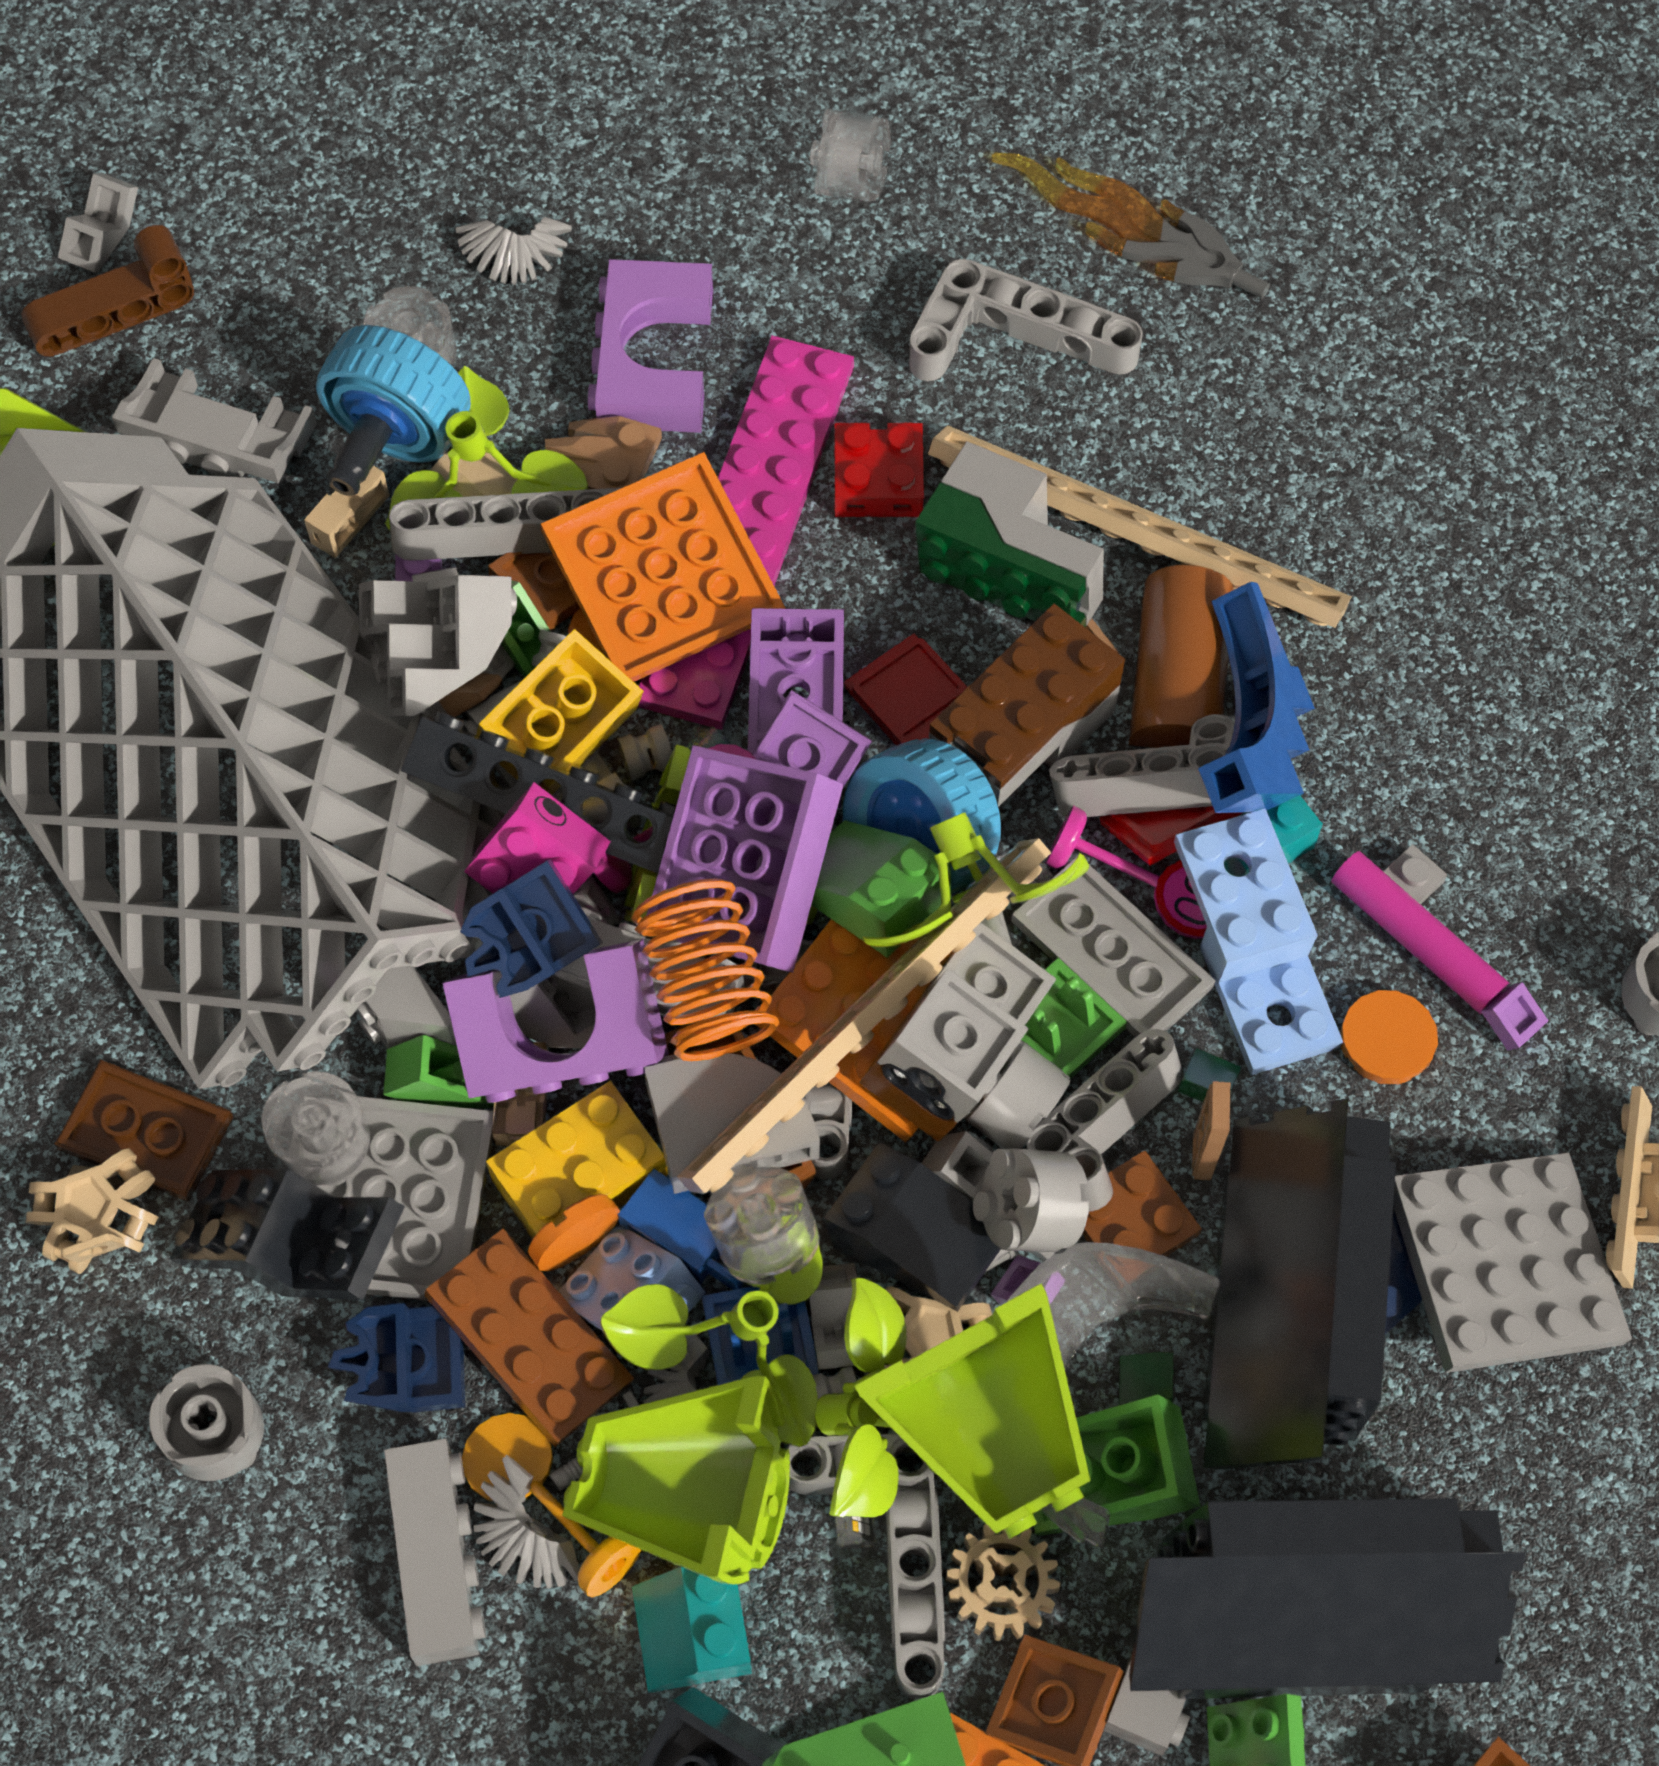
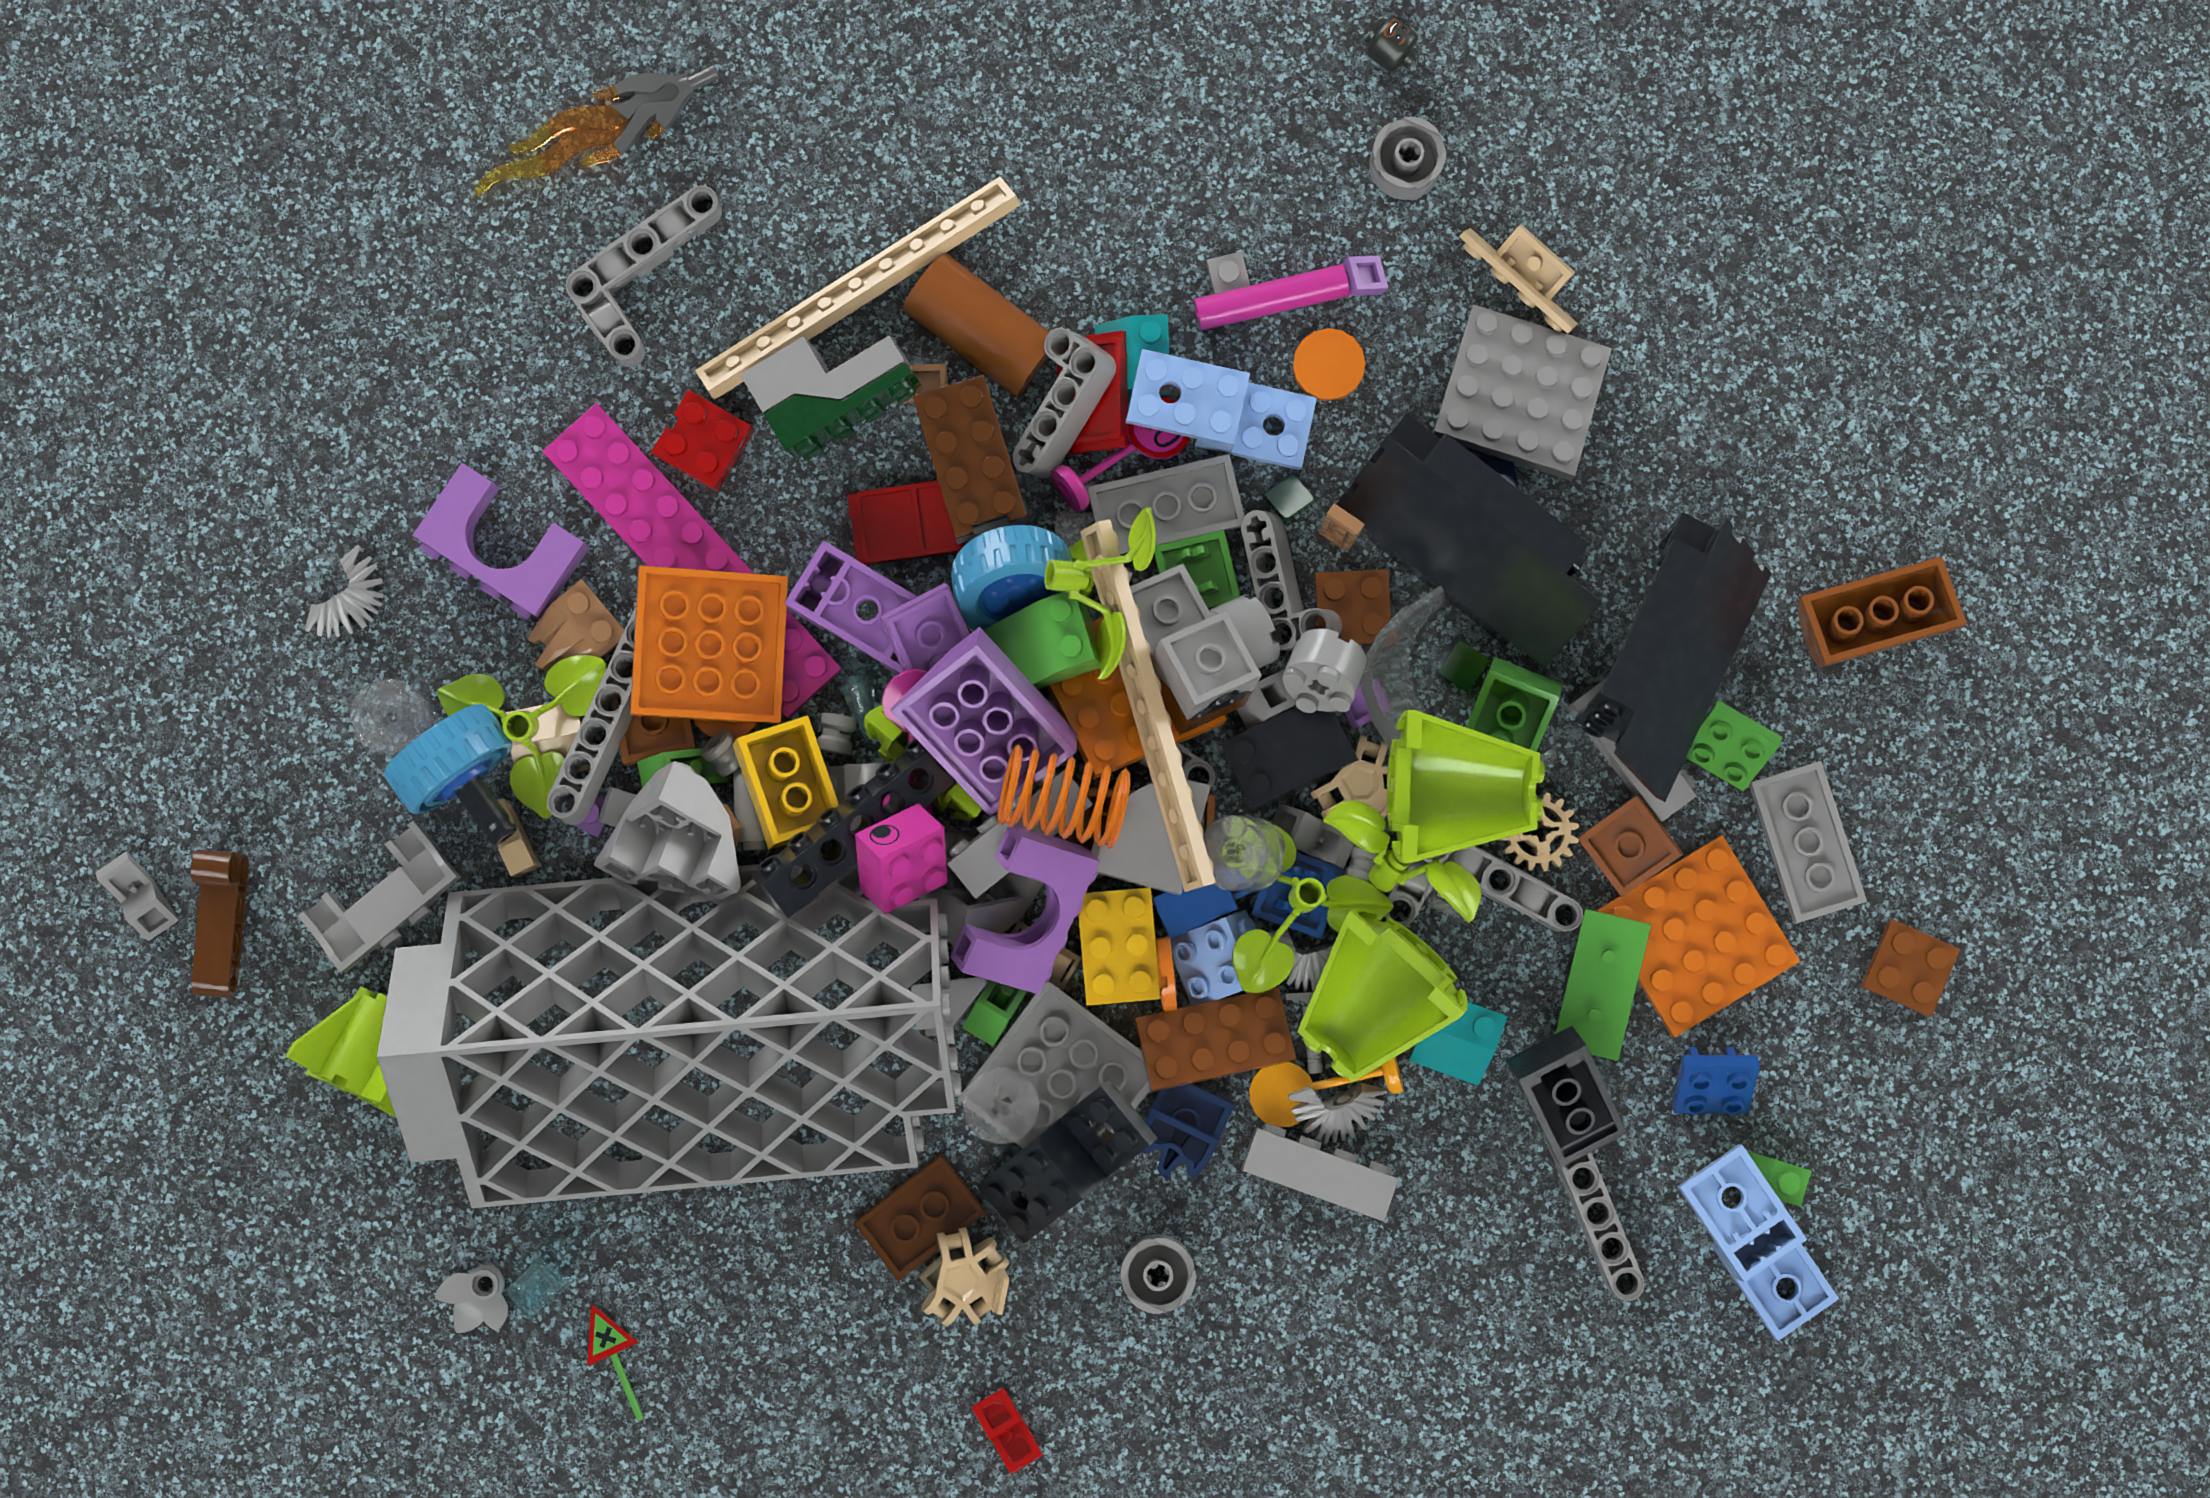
camera: 60 degrees left, 20 degrees up
(528, 930) = (961, 895): dark blue plate -> none
(851, 156) = (425, 303): clear brick -> none
(1267, 702) = (1048, 284): blue arch -> none

